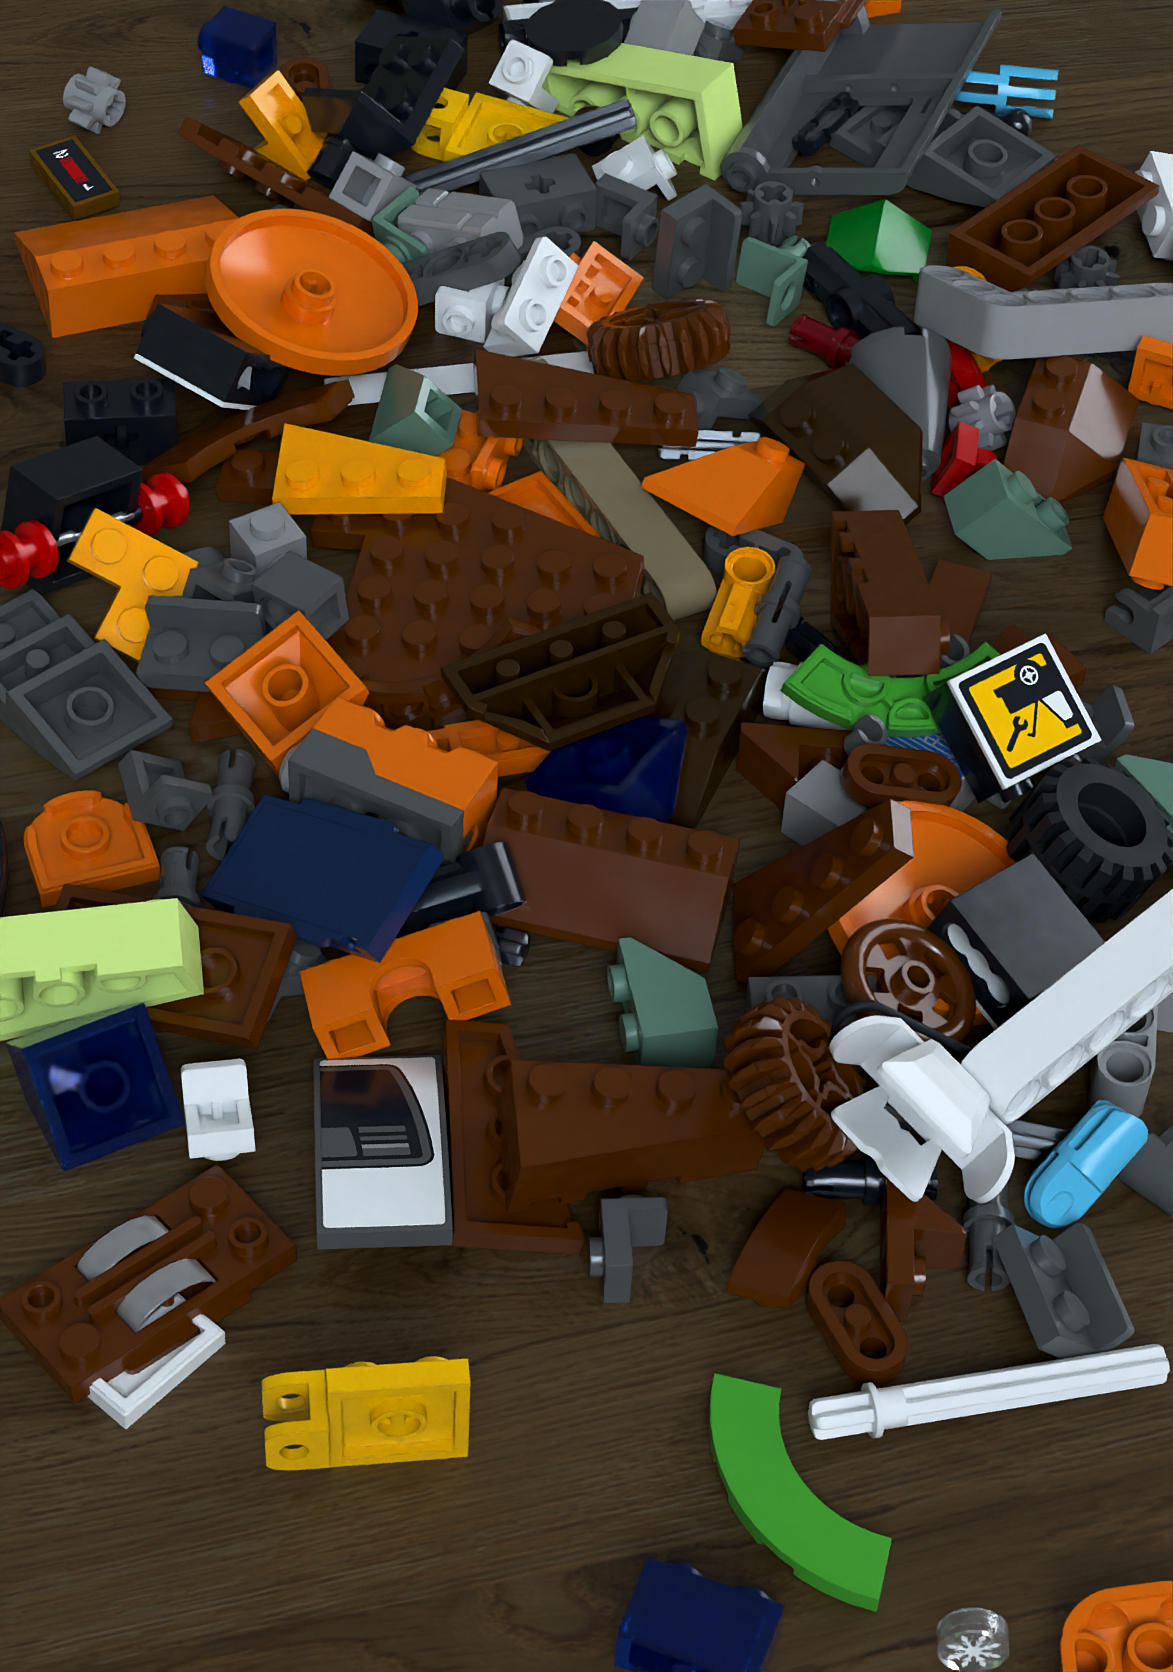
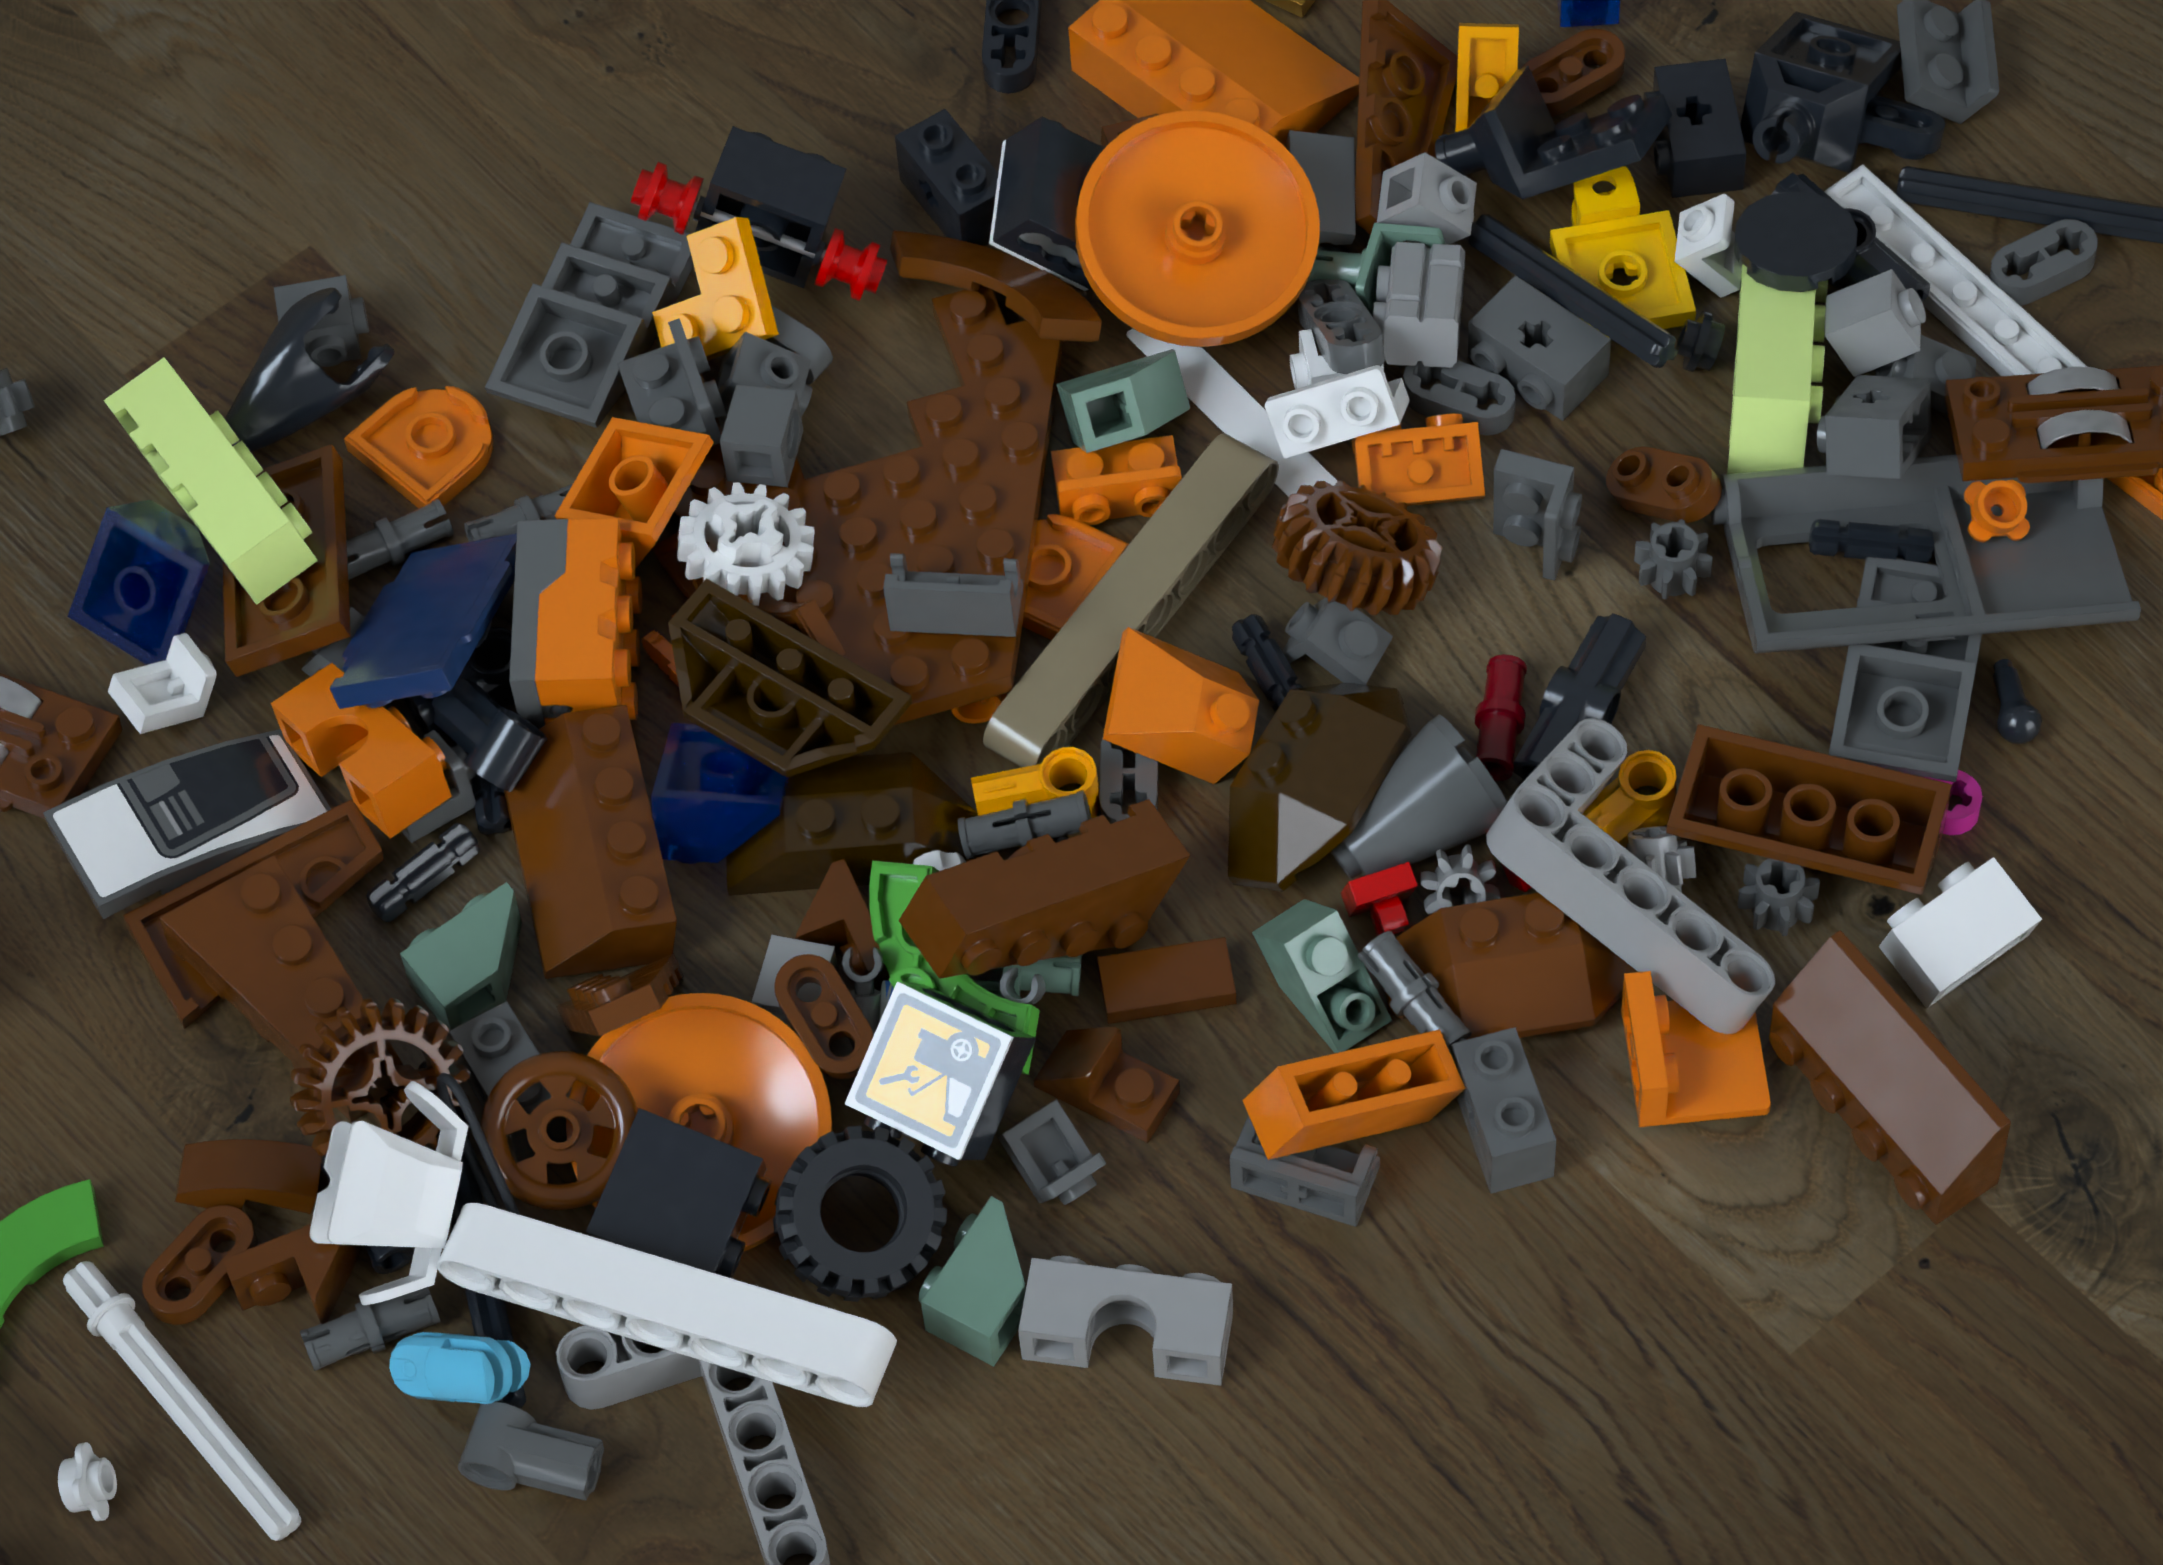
camera: 70 degrees right, 10 degrees up
(160, 791) = (505, 458): dark grey bracket -> none
(265, 537) = (853, 384): light grey brick -> none
(354, 476) = (974, 393): light orange wing -> none
(404, 645) = (746, 542): none -> white gear
(539, 1012) = (422, 872): none -> black axle
(562, 545) = (953, 600): none -> dark grey hinge
(568, 404) = (1195, 516): reddish brown wing -> none
(623, 1225) = (182, 1043): dark grey bracket -> none
(628, 213) = (1587, 427): dark grey bracket -> none
(640, 166) = (1657, 409): white bracket -> none
(730, 185) = (1651, 481): none -> reddish brown plate
(764, 62) = (1876, 427): none -> dark grey brick
(774, 273) = (1580, 606): sand green bracket -> none
(855, 51) = (2006, 495): none -> orange plate
(880, 239) = (1708, 680): green slope -> none
(1005, 89) = (2070, 687): medium azure arm -> none
(1046, 1492) = (87, 1482): none -> white plate
(1064, 1290) = (304, 1407): dark grey bracket -> none
(1071, 465) = (1411, 990): none -> dark grey pin

